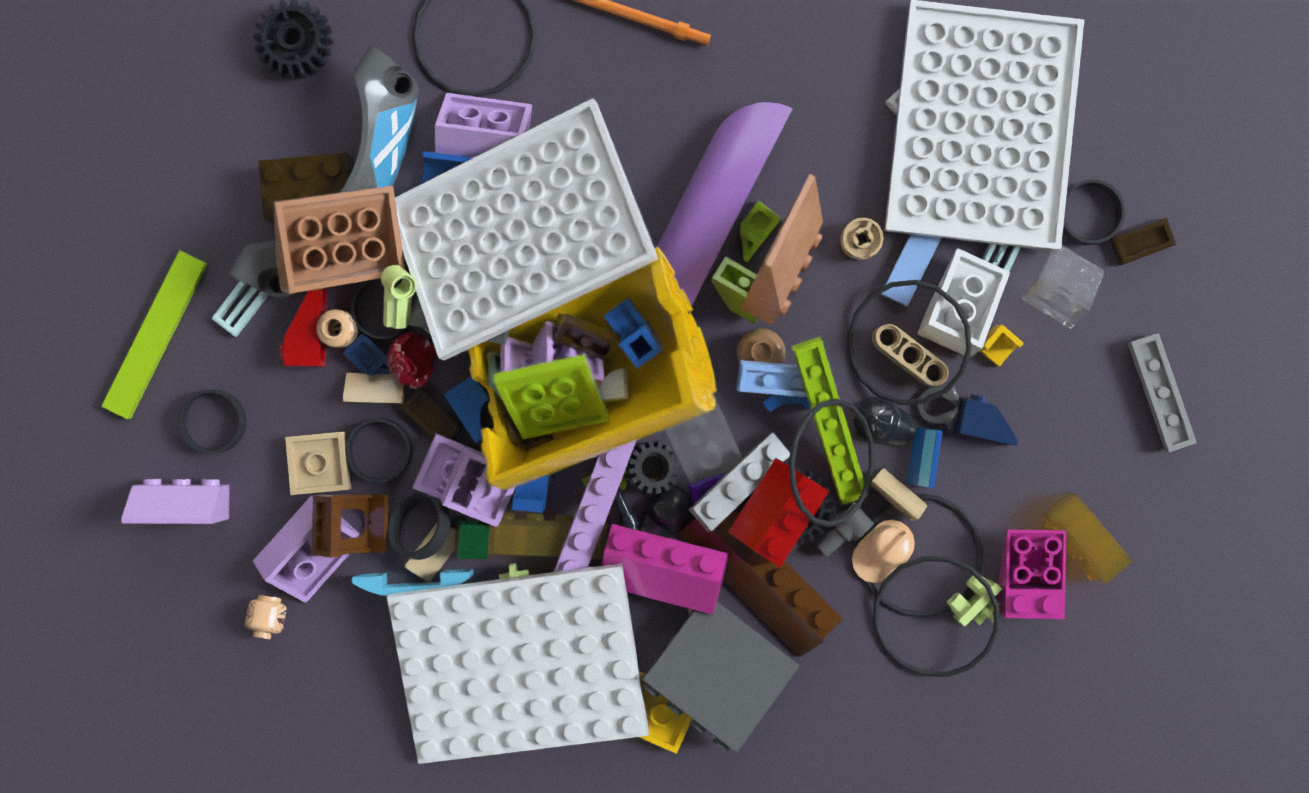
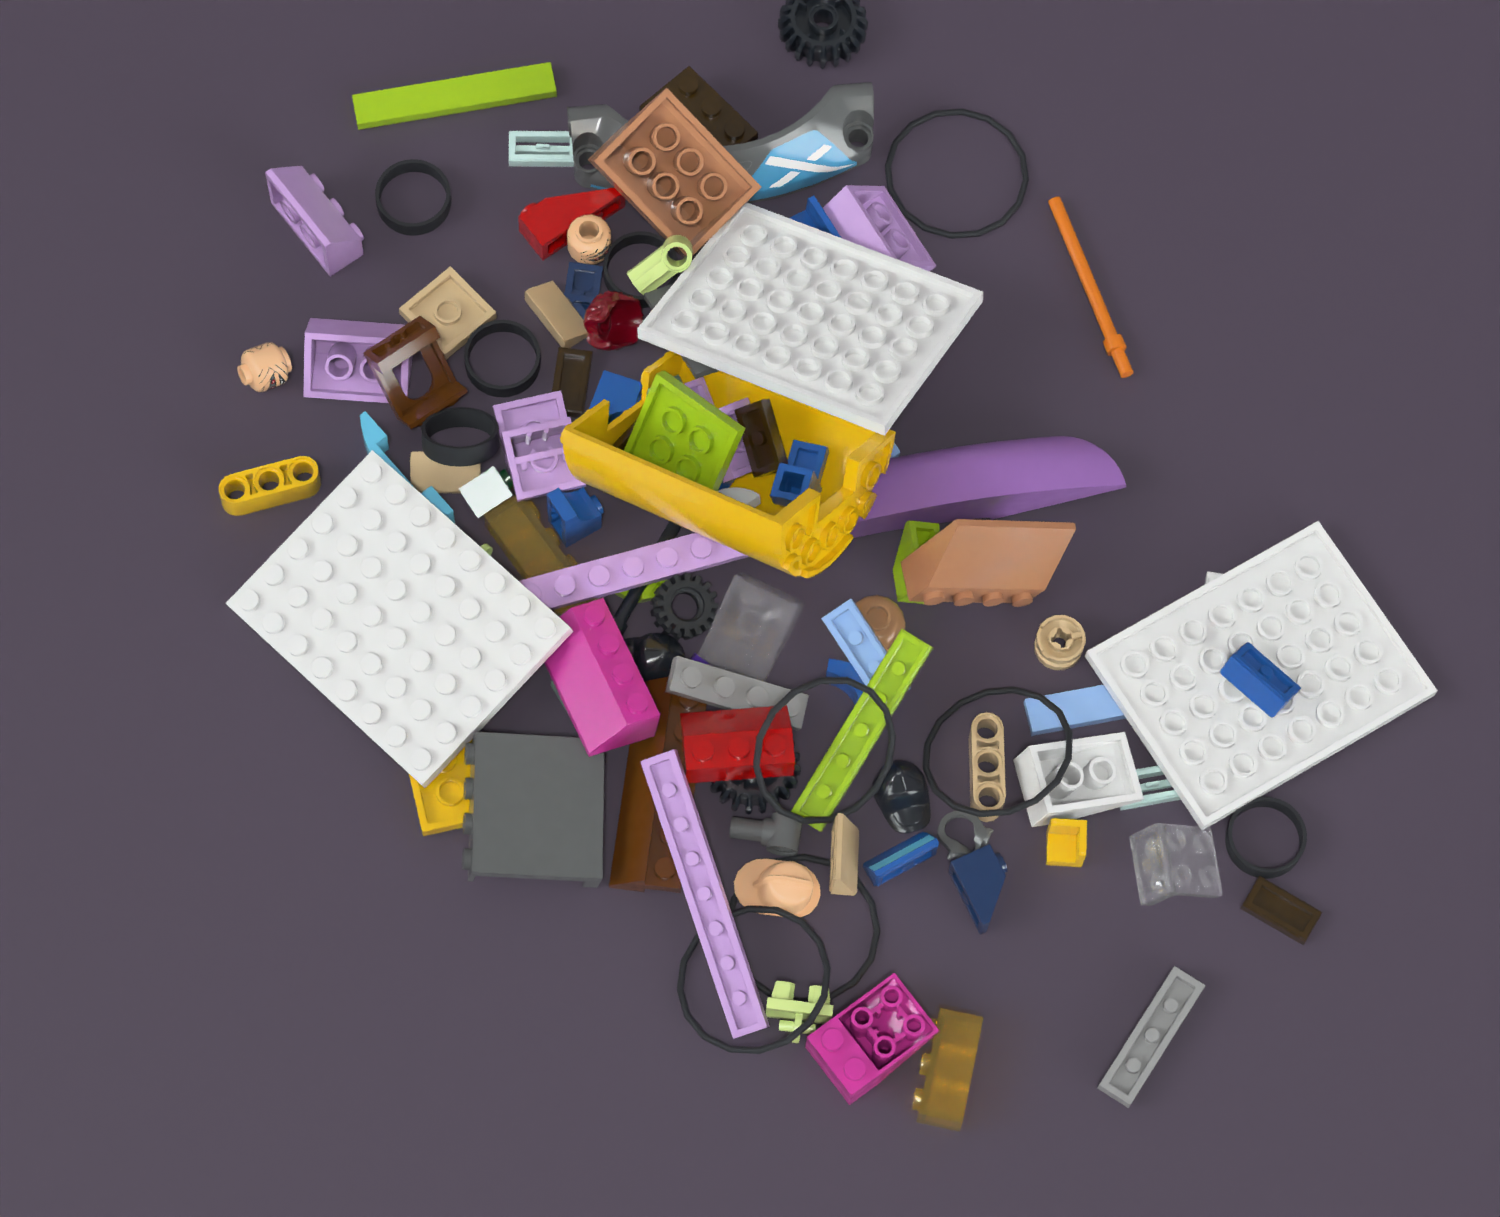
camera: 50 degrees right, 20 degrees down
(346, 685) = (281, 472): none -> yellow beam
(859, 608) = (705, 894): none -> lavender plate
(992, 131) = (1259, 679): none -> blue slope

